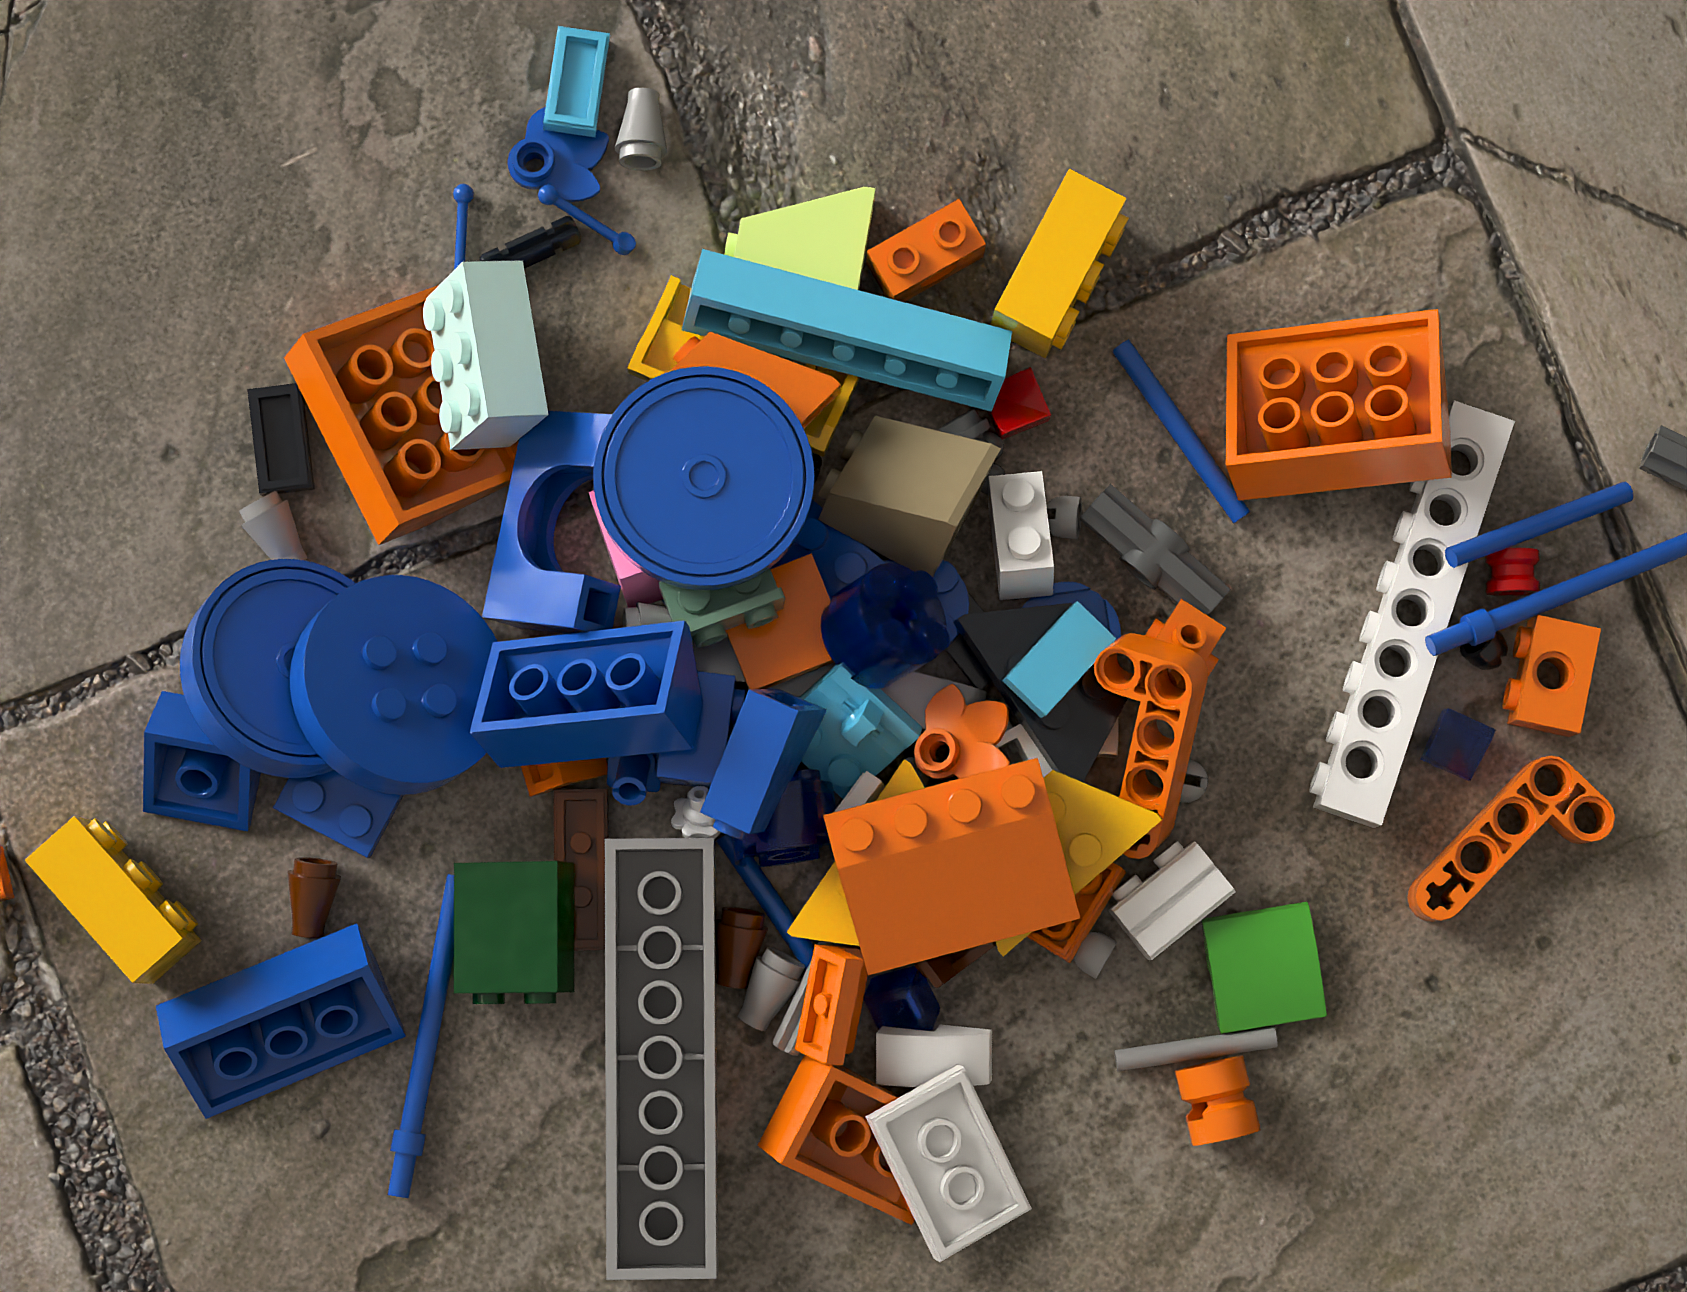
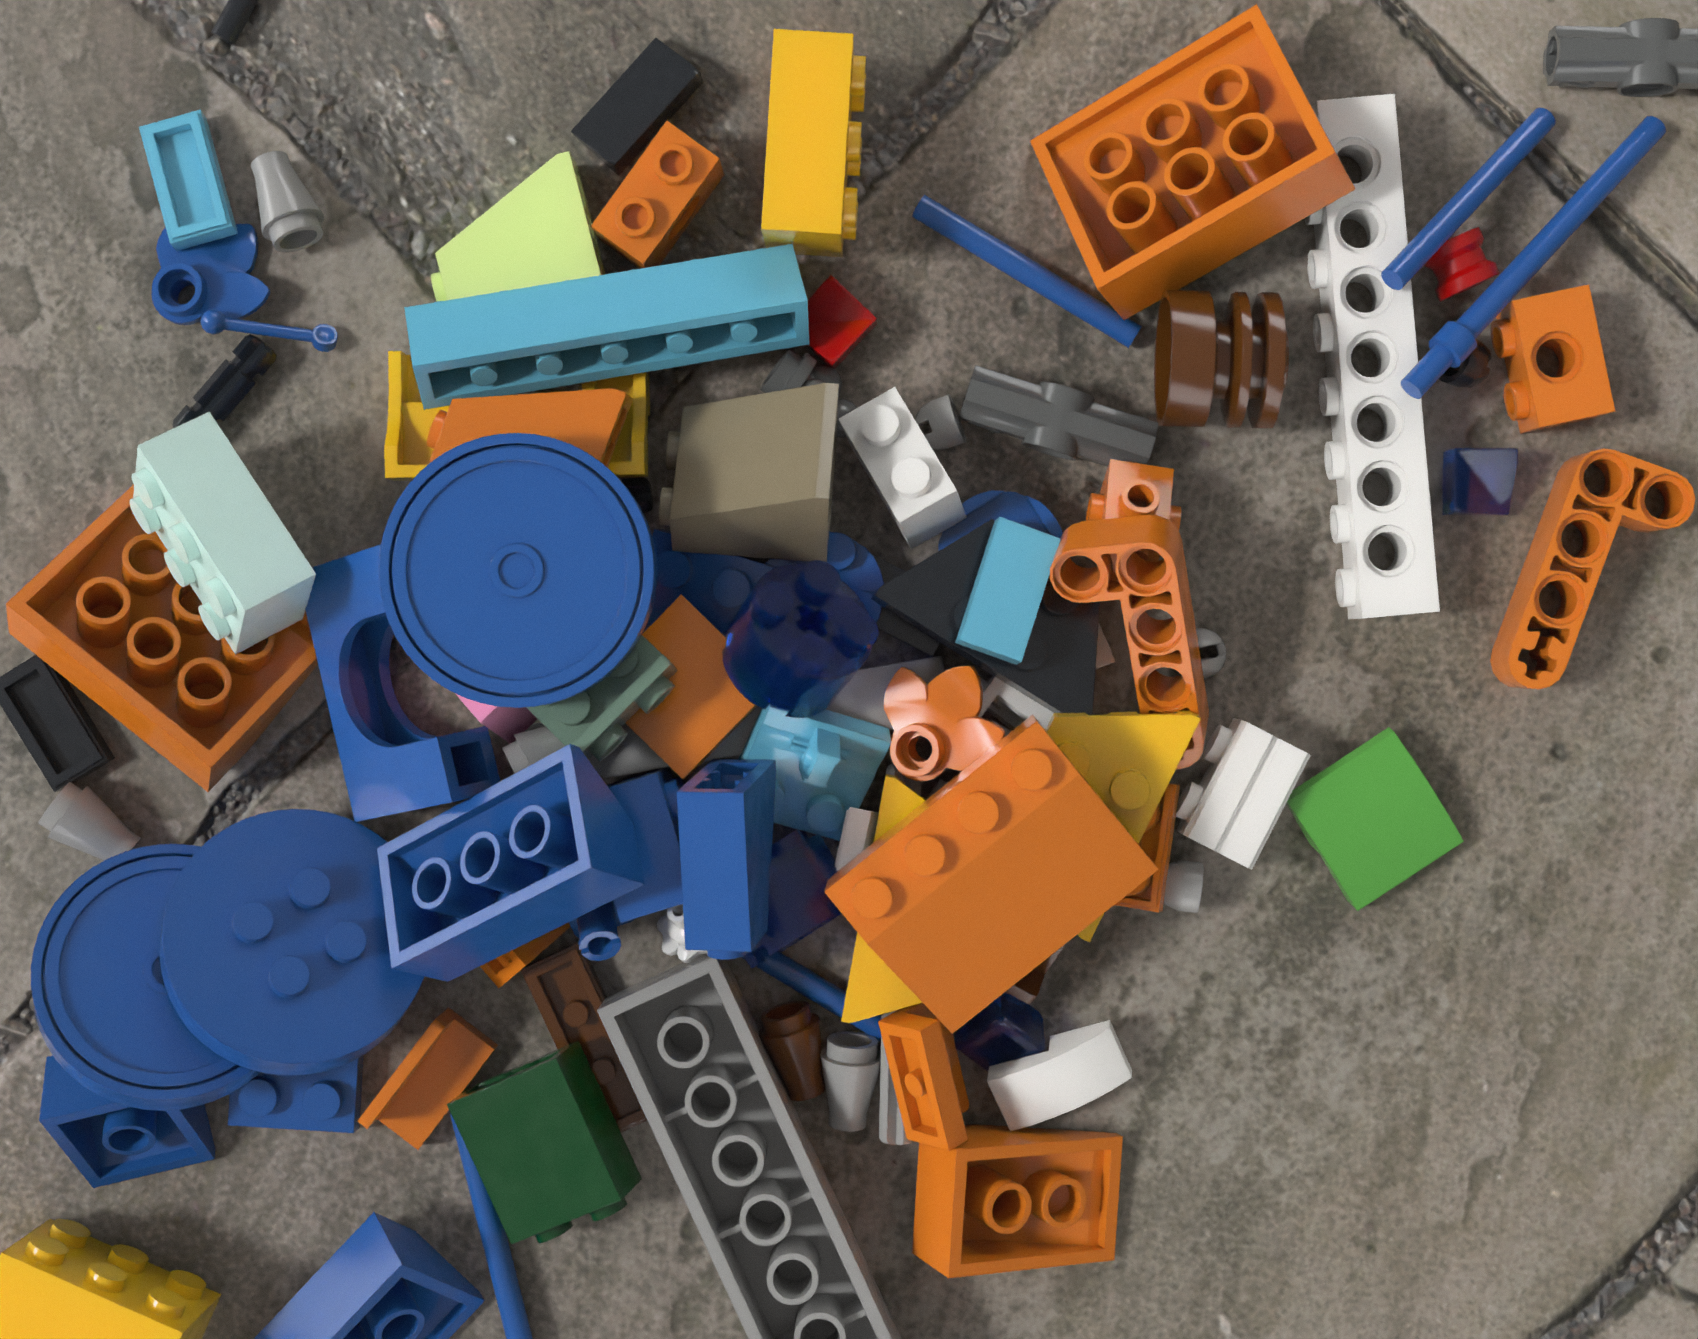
camera: 20 degrees left, 5 degrees up
(312, 893) = (312, 1198): reddish brown cone -> none
(448, 837) = (430, 1078): none -> orange panel
(463, 195) = (125, 363): blue hinge -> none
(941, 176) = (638, 105): none -> black slope
(948, 1162) = (1126, 1184): white tile -> none
(1195, 1048) = (1335, 938): light grey bar -> none
(1217, 1100) = (1393, 995): orange wheel -> none
(1296, 560) = (1227, 360): none -> reddish brown wheel

